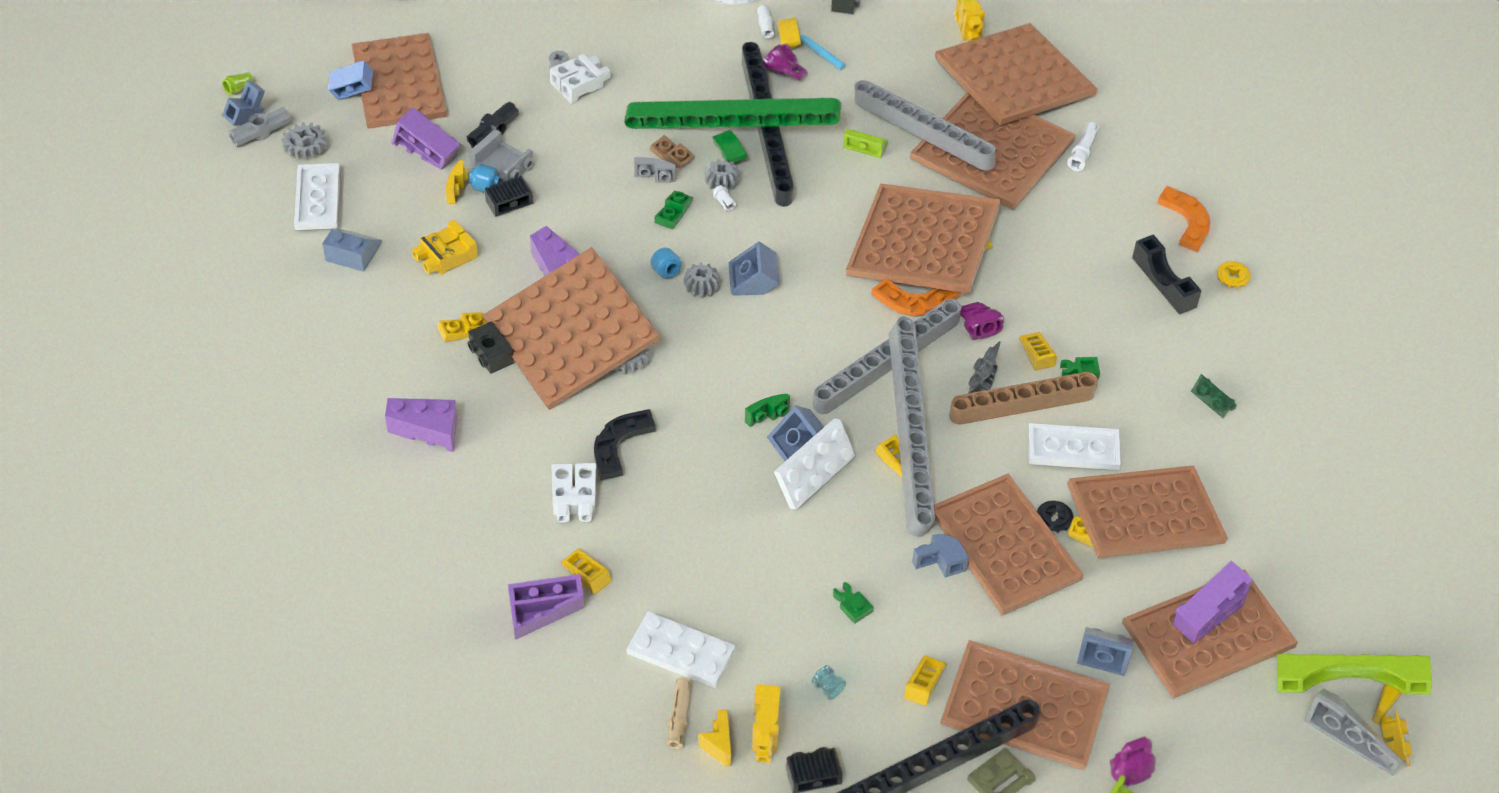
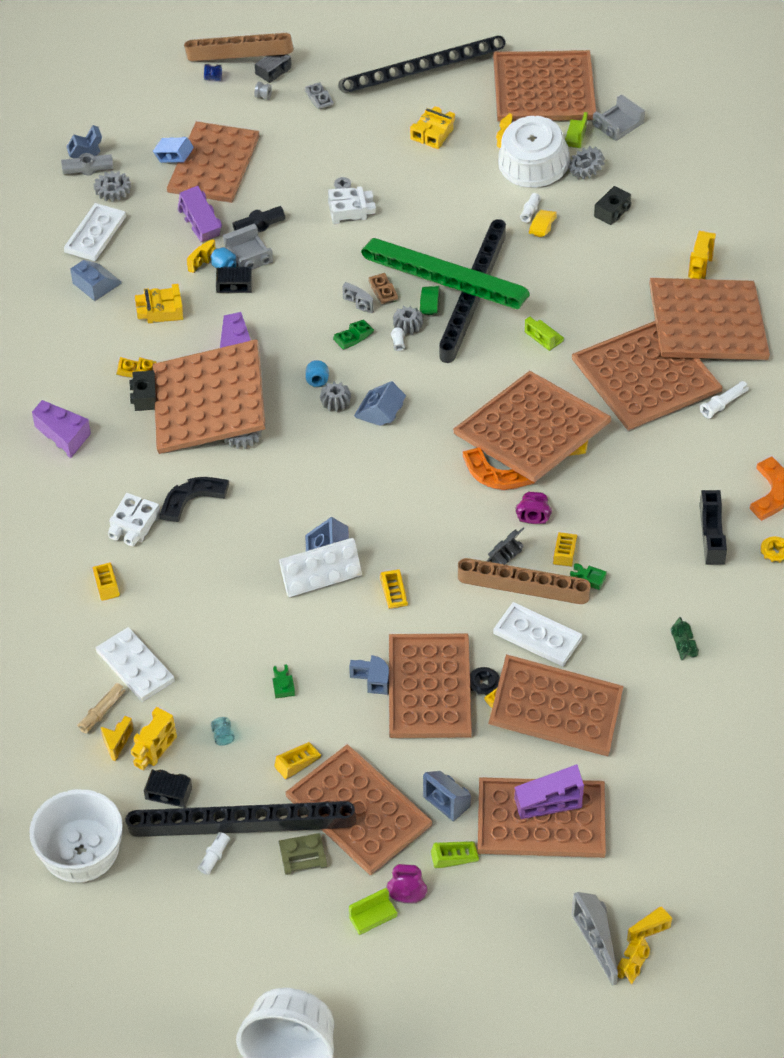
camera: 30 degrees right, 0 degrees up
(235, 83) = (88, 122): lime cone -> none
(543, 602) = (55, 590): medium lavender wedge -> none
(772, 406) = (318, 512): green slope -> none
(783, 61) = (520, 244): magenta piece -> none
(822, 52) = (561, 248): medium azure bar -> none
(878, 361) = (438, 508): light grey beam -> none
(911, 427) = (412, 573): light grey beam -> none
(925, 125) = (596, 335): light grey beam -> none
(1140, 719) = (442, 859): none -> lime slope
(1405, 673) = (590, 876): lime arch -> none

